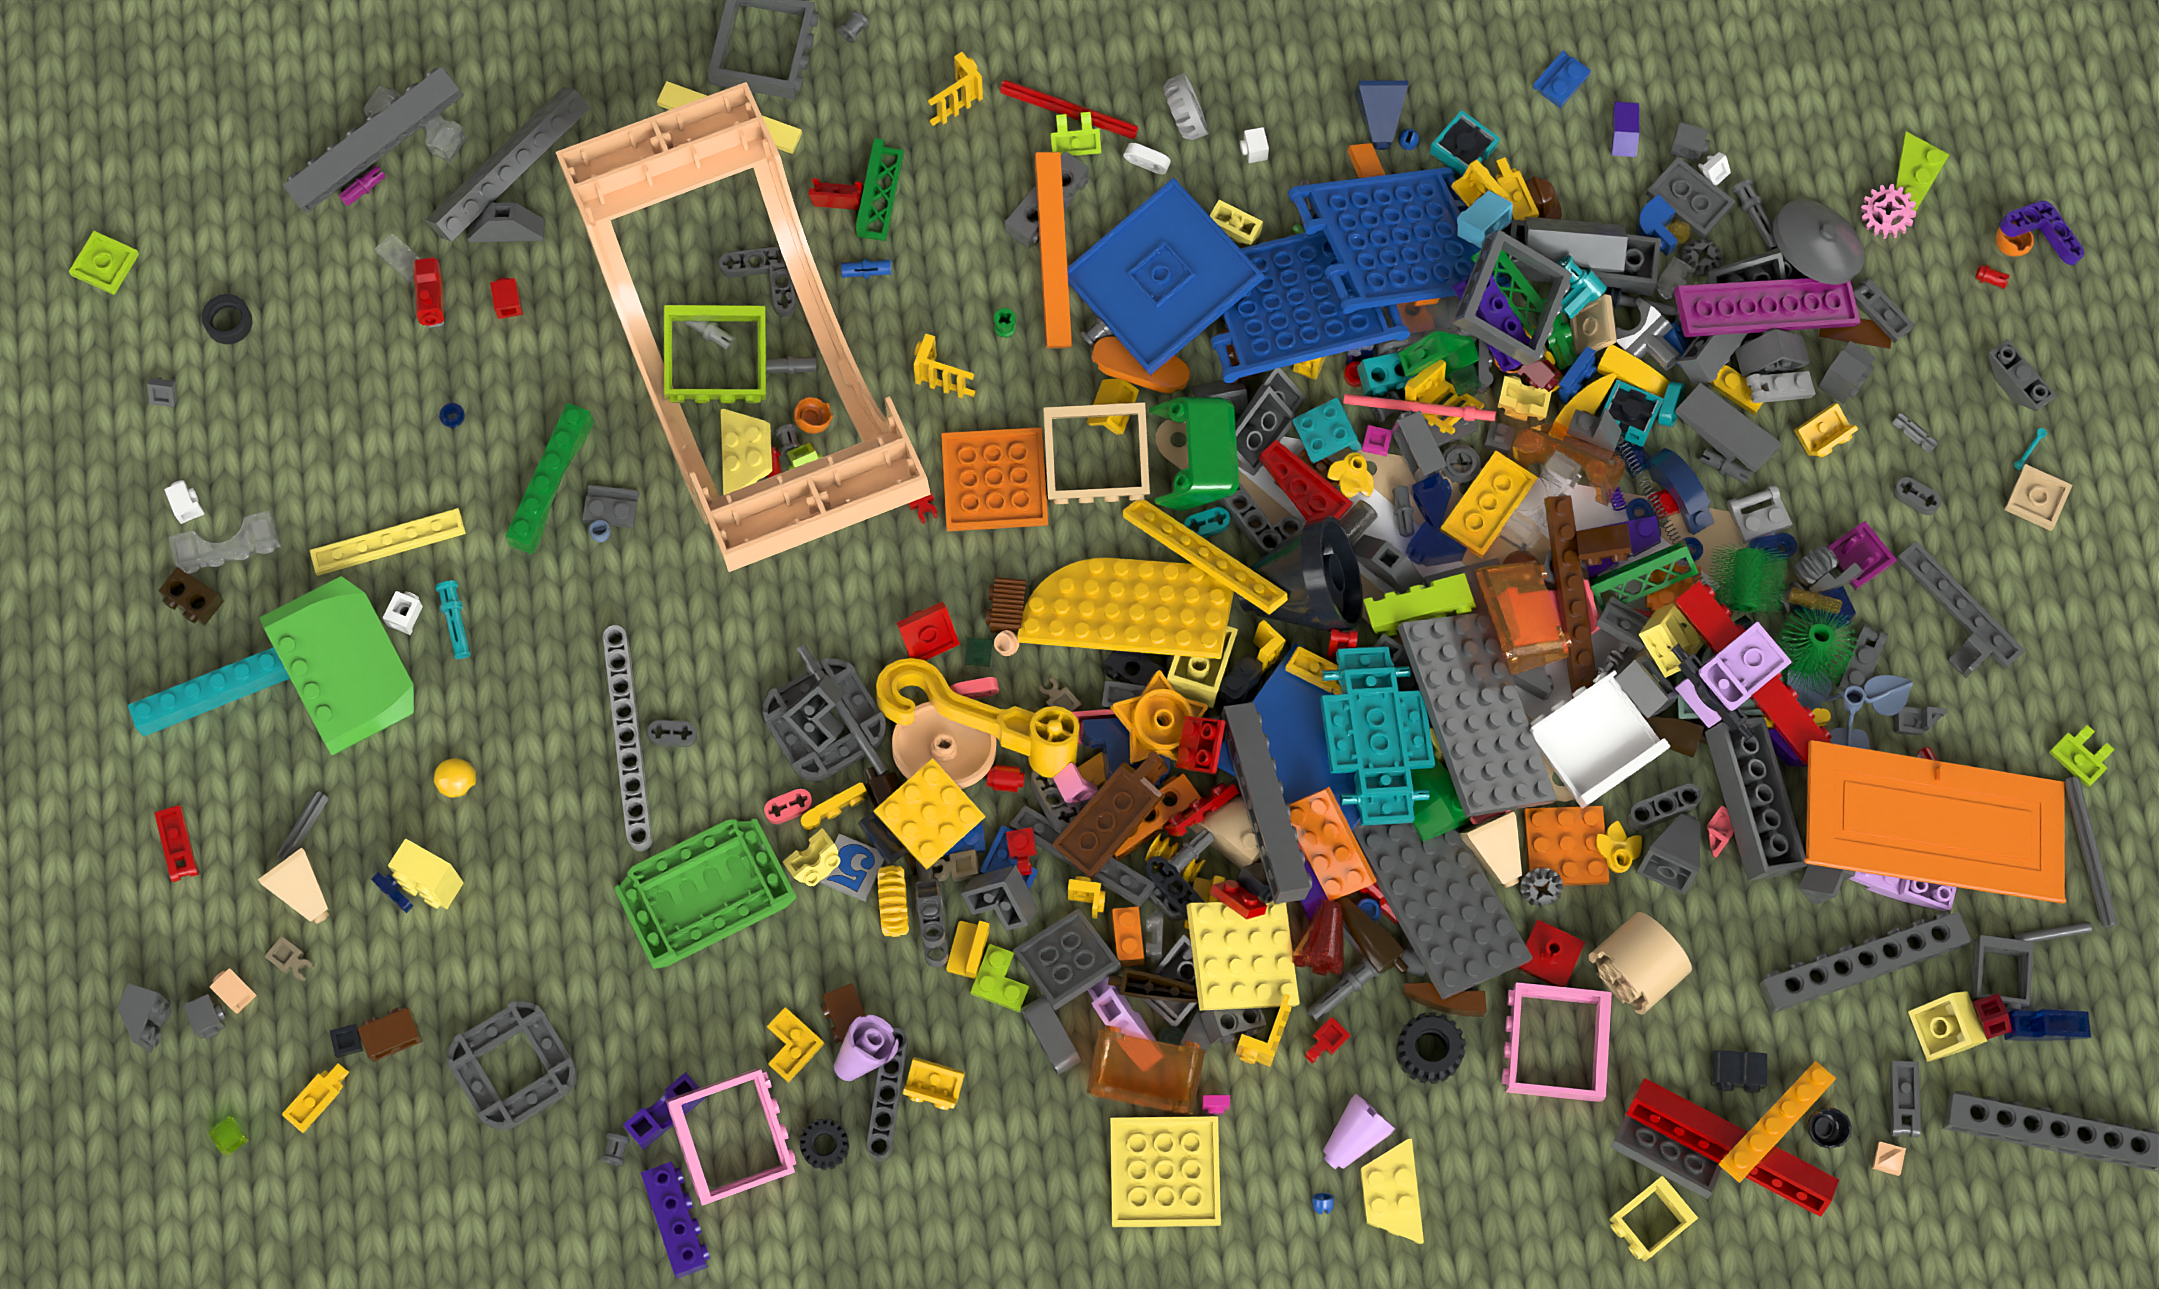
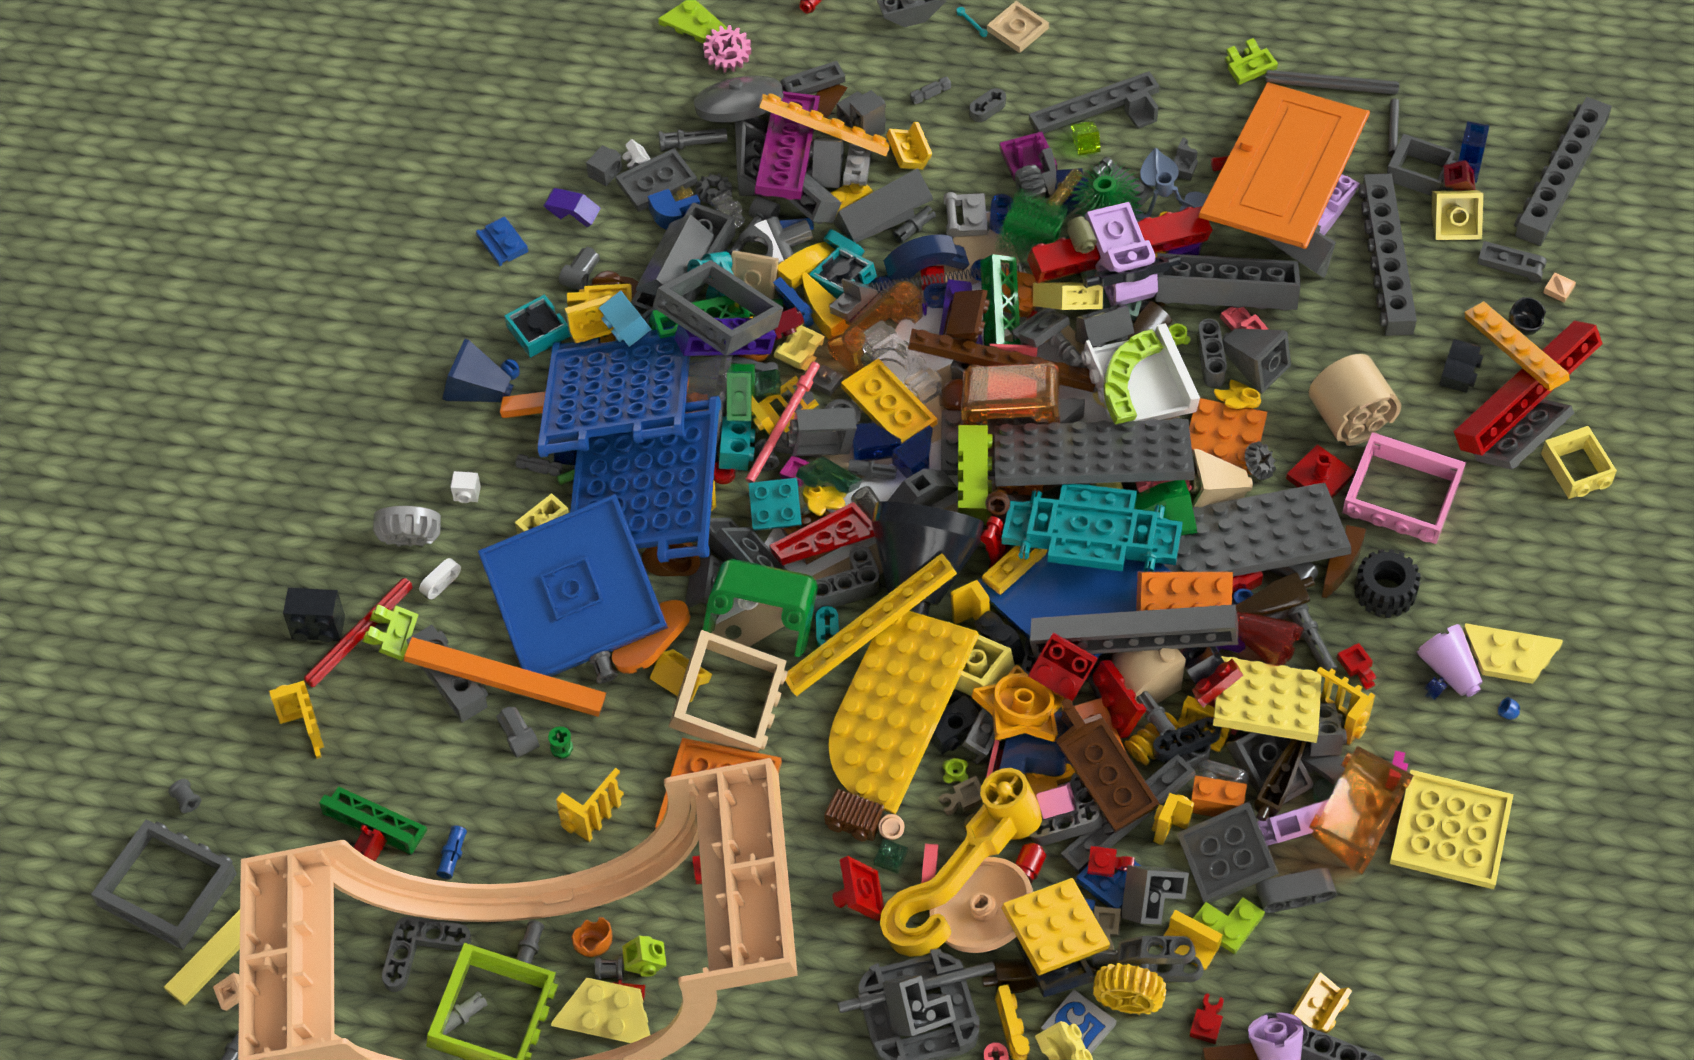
camera: 70 degrees left, 15 degrees down
(888, 983) = (1207, 1022): none -> red plate
(1000, 286) = (519, 736): none -> dark grey piece
(1065, 62) = (314, 614): none -> black brick
(1086, 678) = (955, 764): none -> lime plate
(1323, 1123) = (1435, 687): none -> clear blue plate
(1382, 635) = (1000, 505): none -> reddish brown cone
(1383, 469) = (823, 471): none -> clear green plate
(1542, 161) = (577, 274): none -> dark grey piece
(1593, 714) = (1119, 372): none -> lime tile
(1682, 762) = (1181, 331): none -> lime plate
(1731, 625) = (1081, 235): none -> olive brick
(1807, 334) = (816, 121): none -> light orange plate
(1908, 608) = (1086, 138): none -> clear neon green brick

